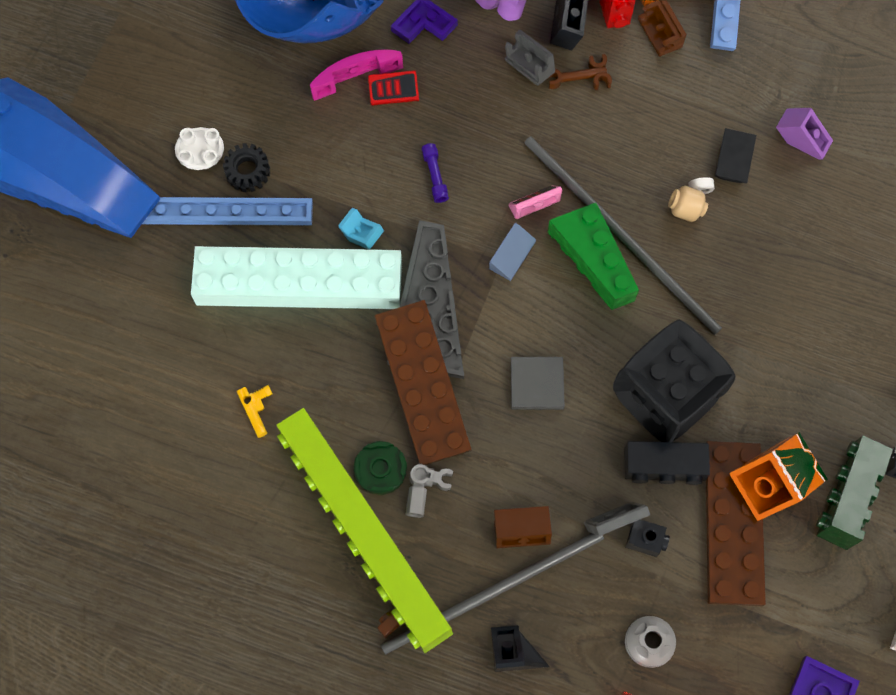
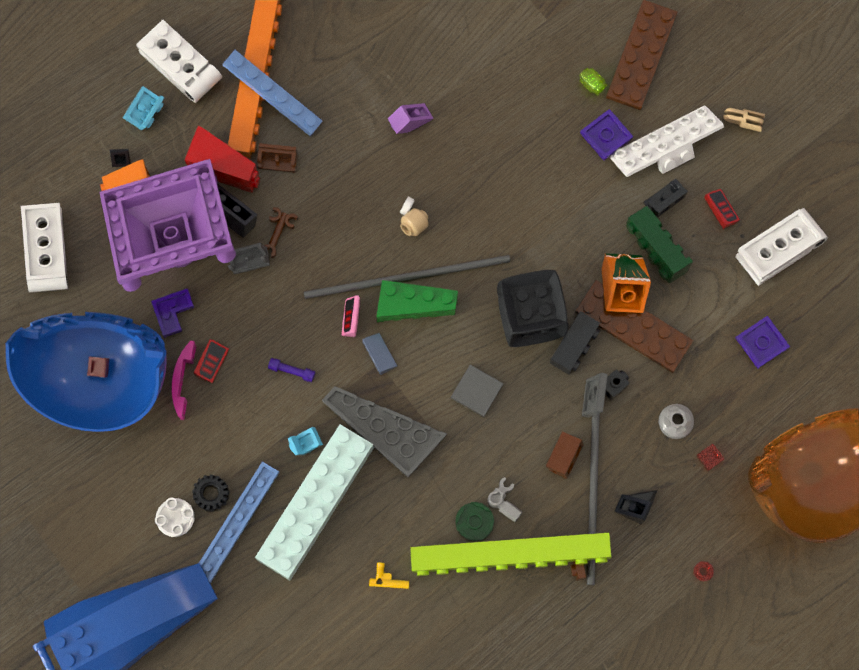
camera: 60 degrees left, 5 degrees up
(423, 383) = (436, 462): reddish brown plate -> none
(735, 156) = (399, 171): black piece -> none

